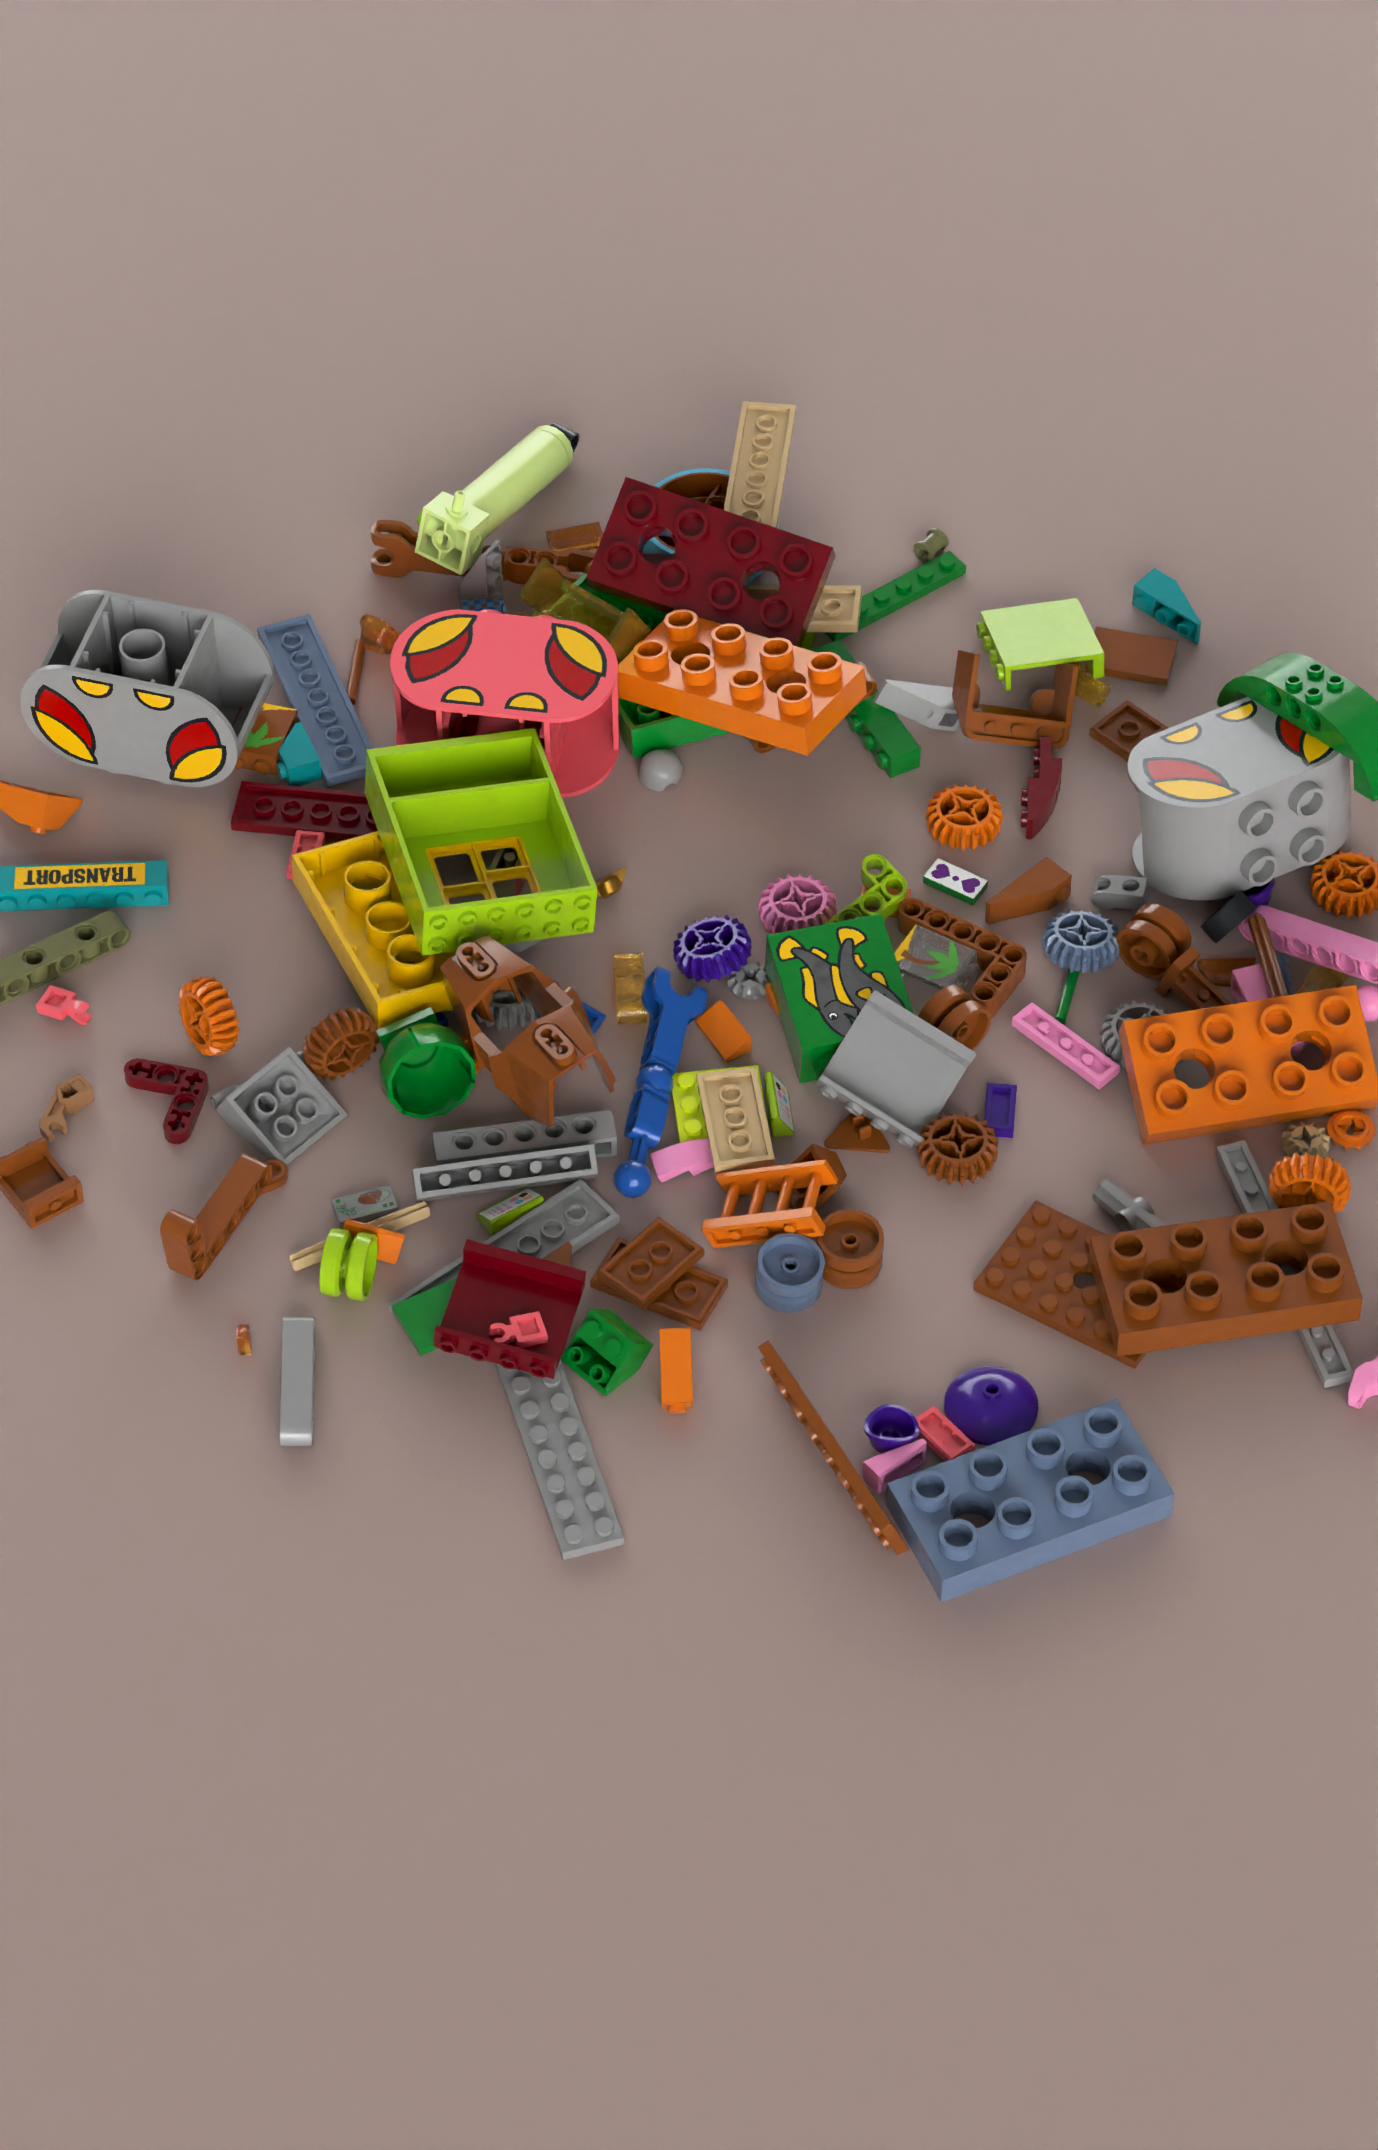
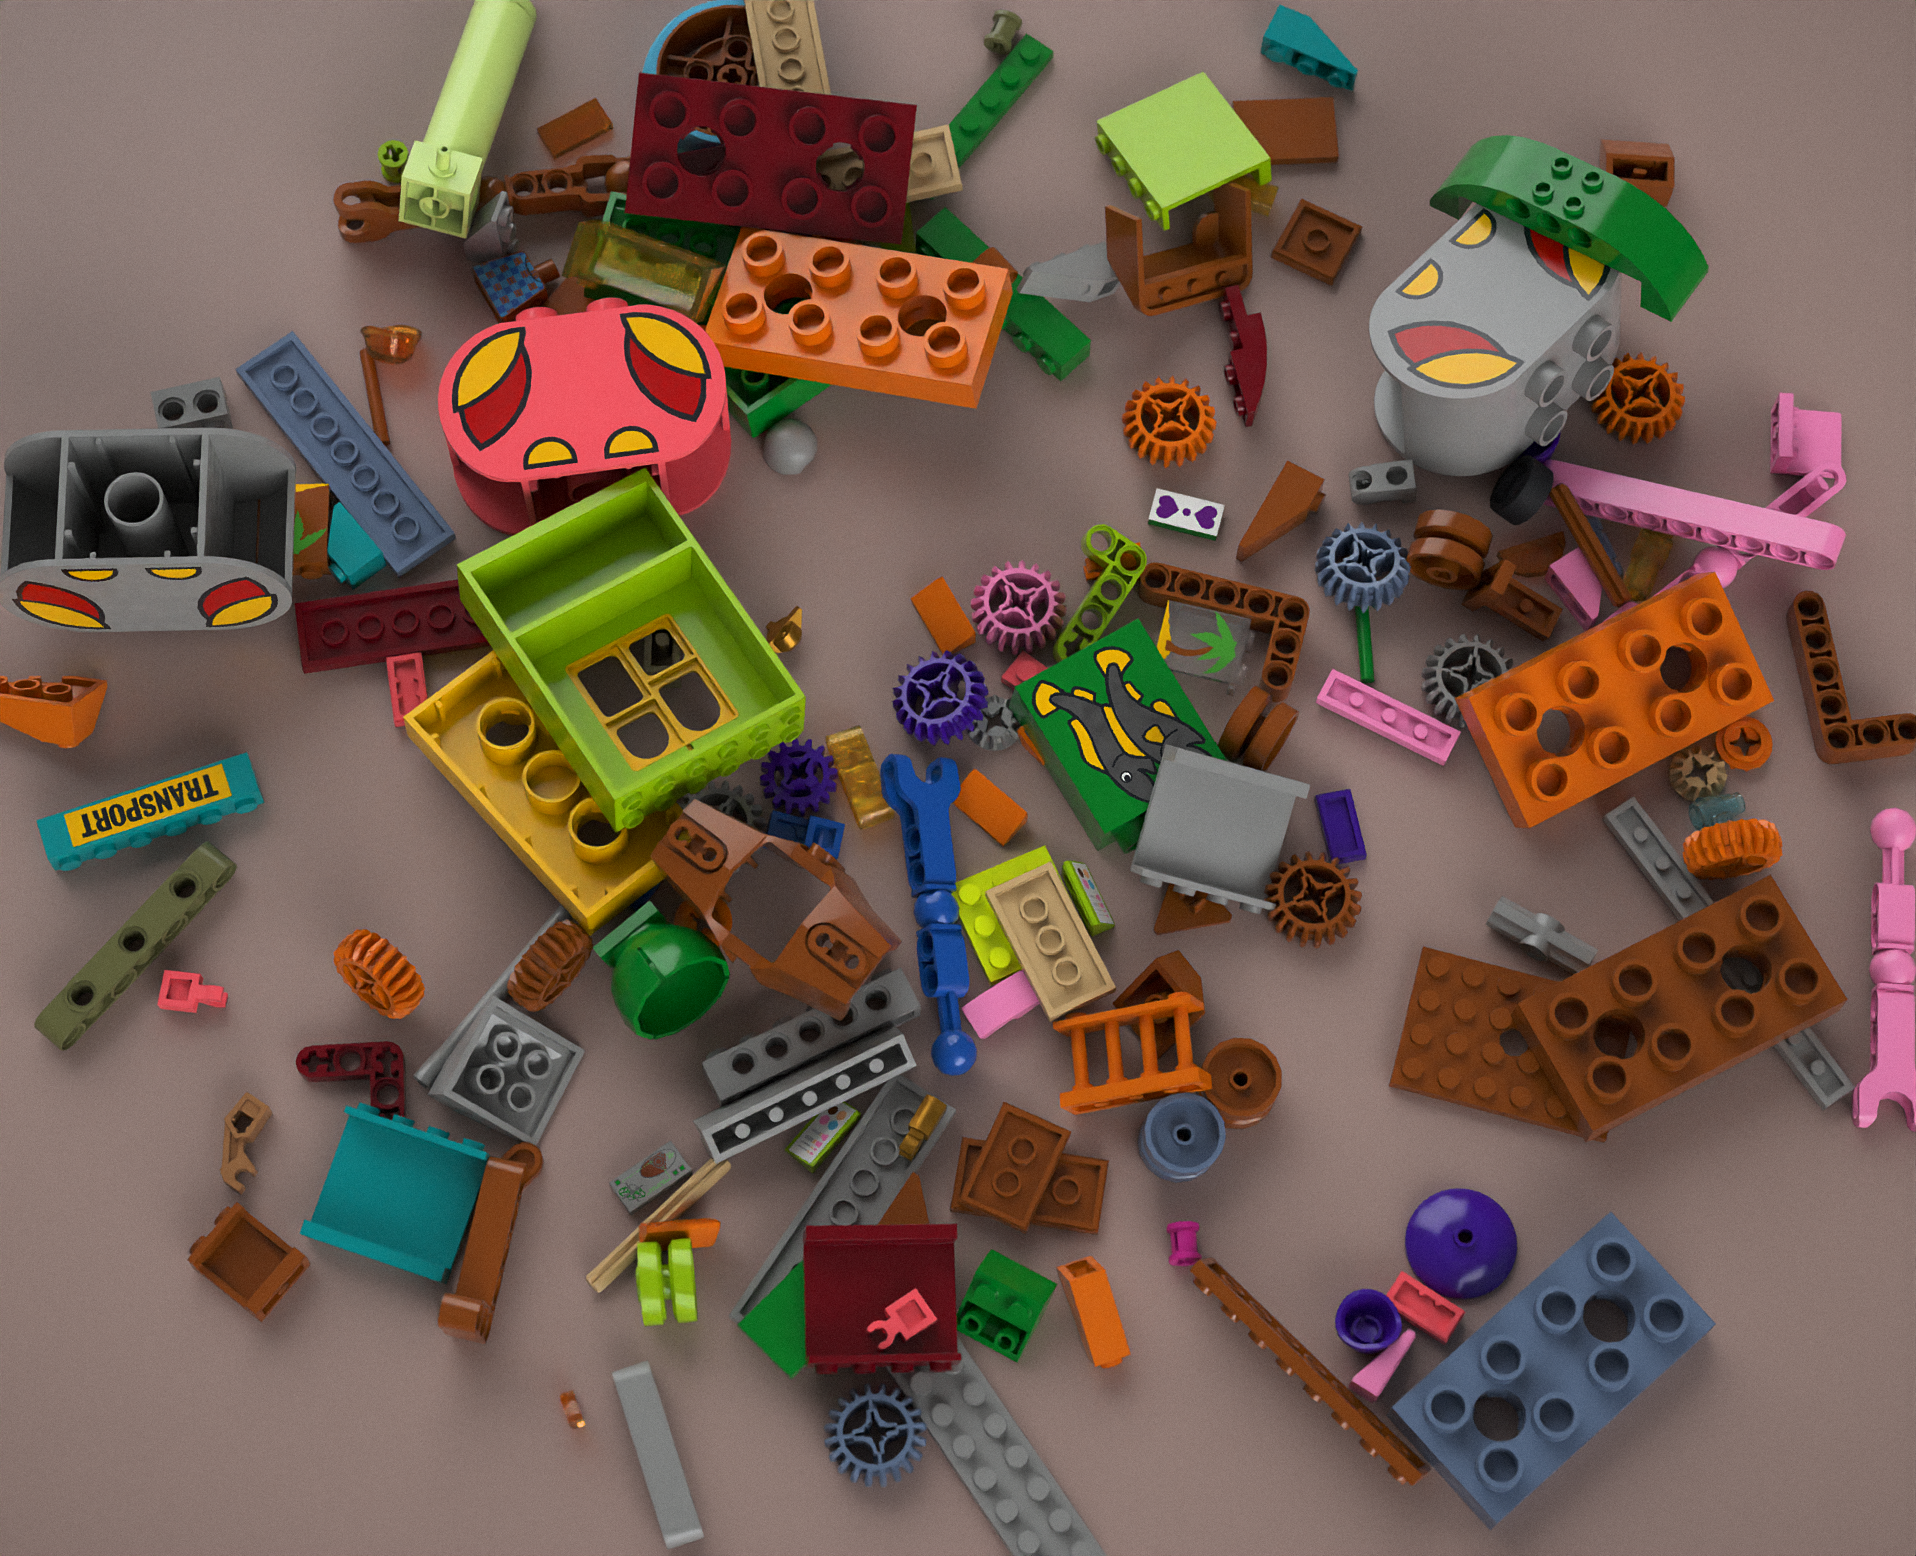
camera: 20 degrees left, 20 degrees up
(166, 1162) = (398, 1193): none -> teal panel
(486, 1421) = (858, 1439): none -> sand blue gear
(583, 974) = (791, 790): none -> dark purple gear
(586, 1214) = (922, 1125): none -> pearl gold bar
(737, 901) = (944, 617): none -> orange slope
(762, 1335) = (1183, 1243): none -> dark pink bush

